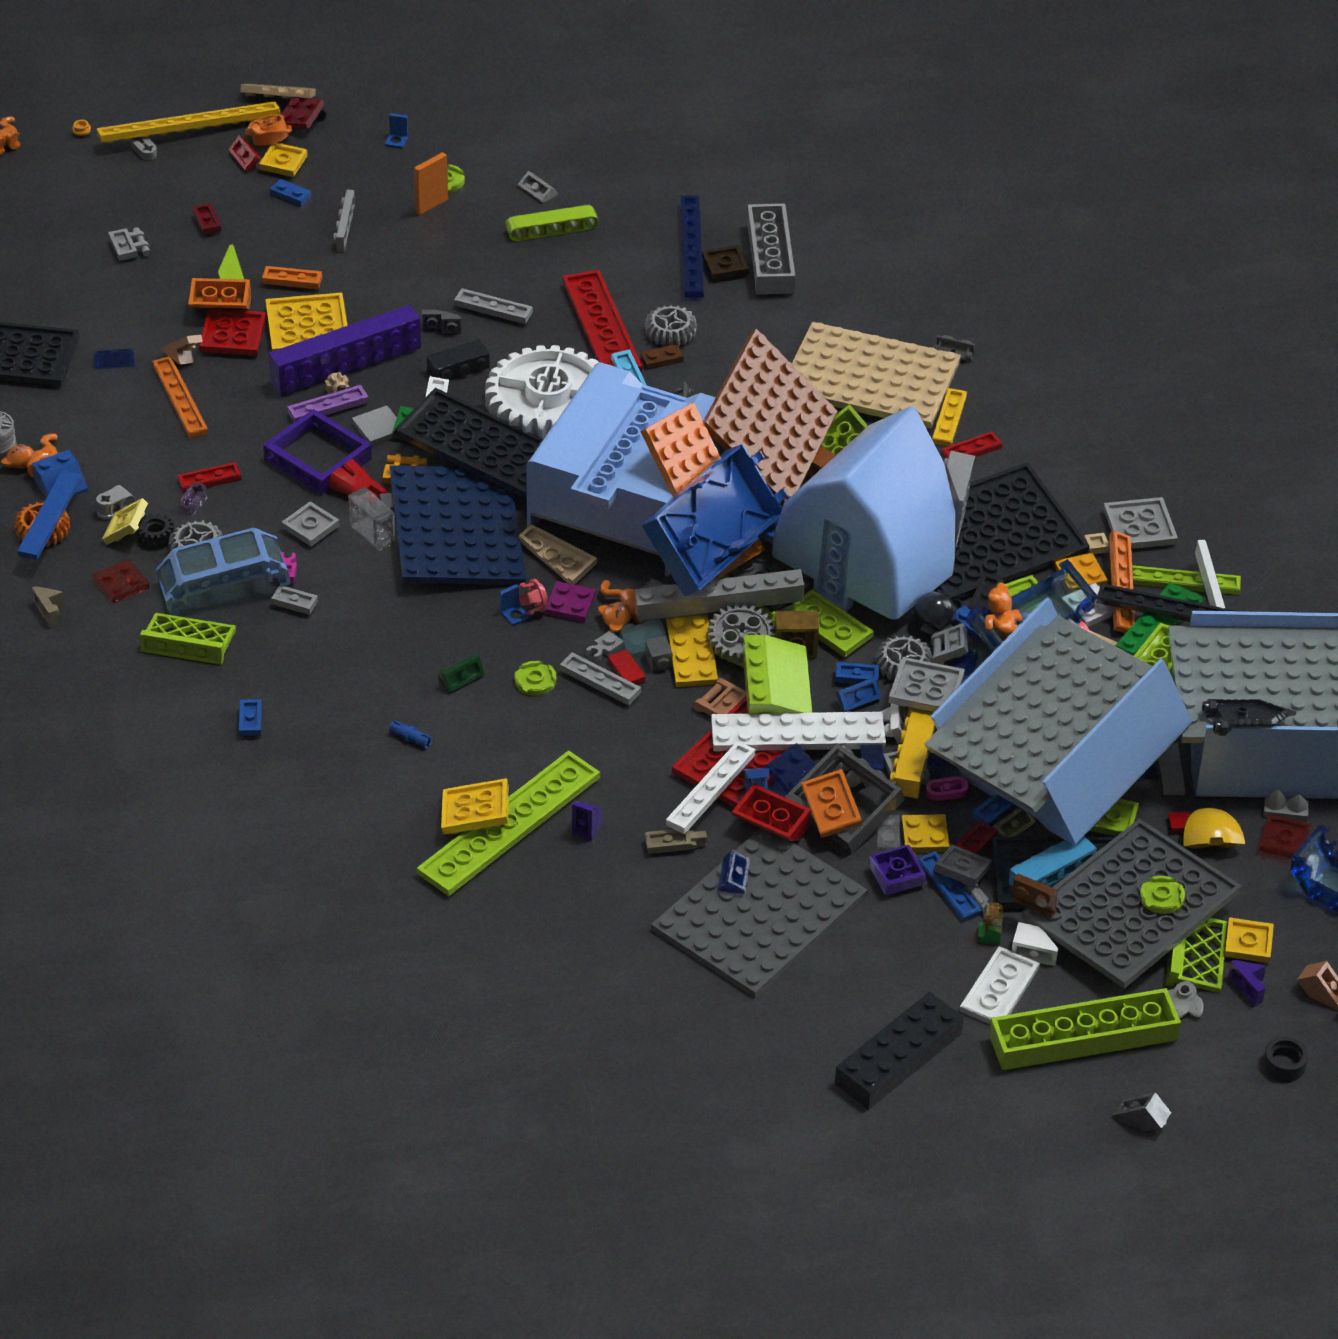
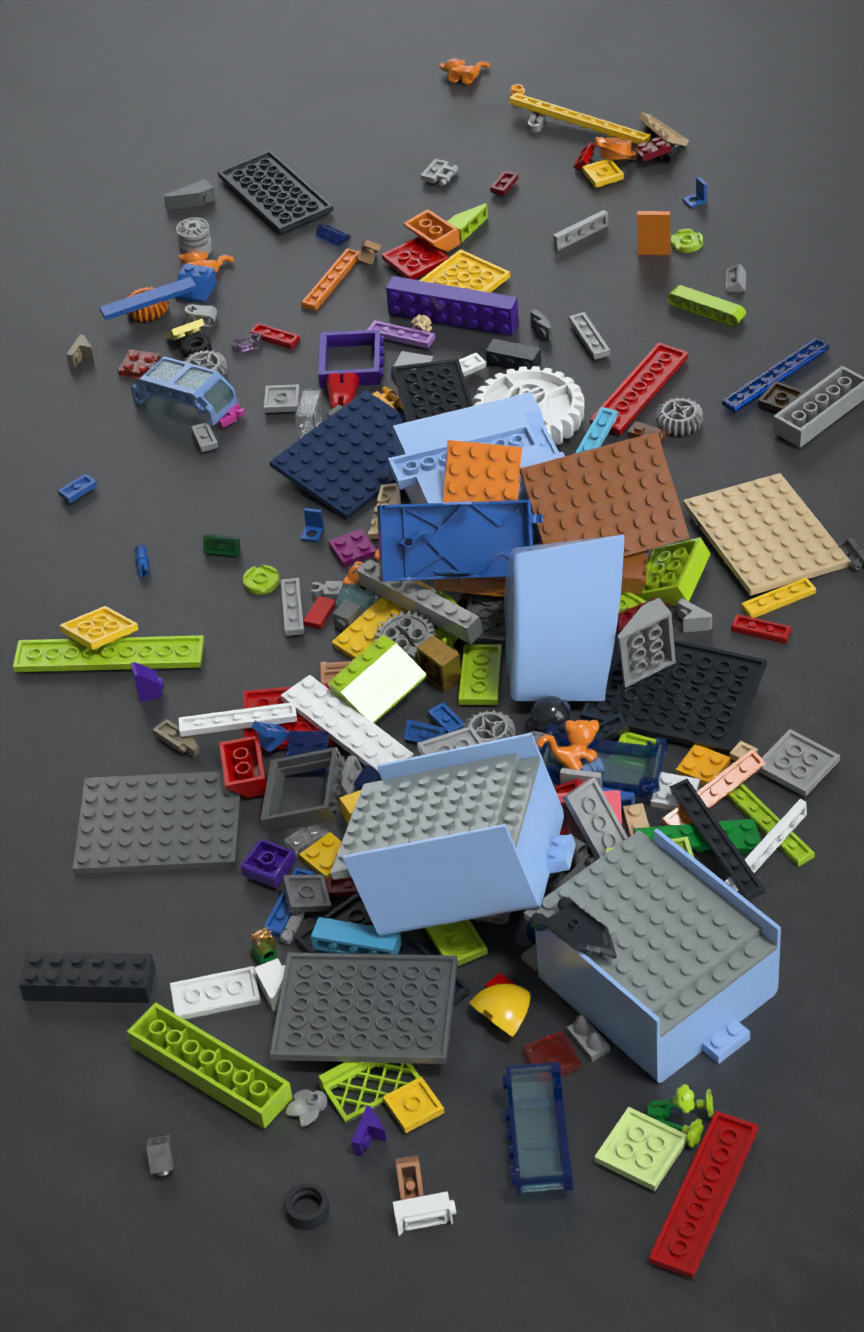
camera: 55 degrees right, 0 degrees up
(192, 646) = (108, 422): lime fence -> none
(290, 192) = (578, 196): blue plate -> none
(292, 277) = (498, 246): orange plate -> none
(536, 596) = (328, 527): coral piece -> none
(734, 873) = (170, 784): clear blue slope -> none
(831, 803) = (282, 785): orange tile -> none
(1034, 895) = (296, 949): reddish brown plate -> none
(1162, 894) = (383, 1018): lime tile -> none

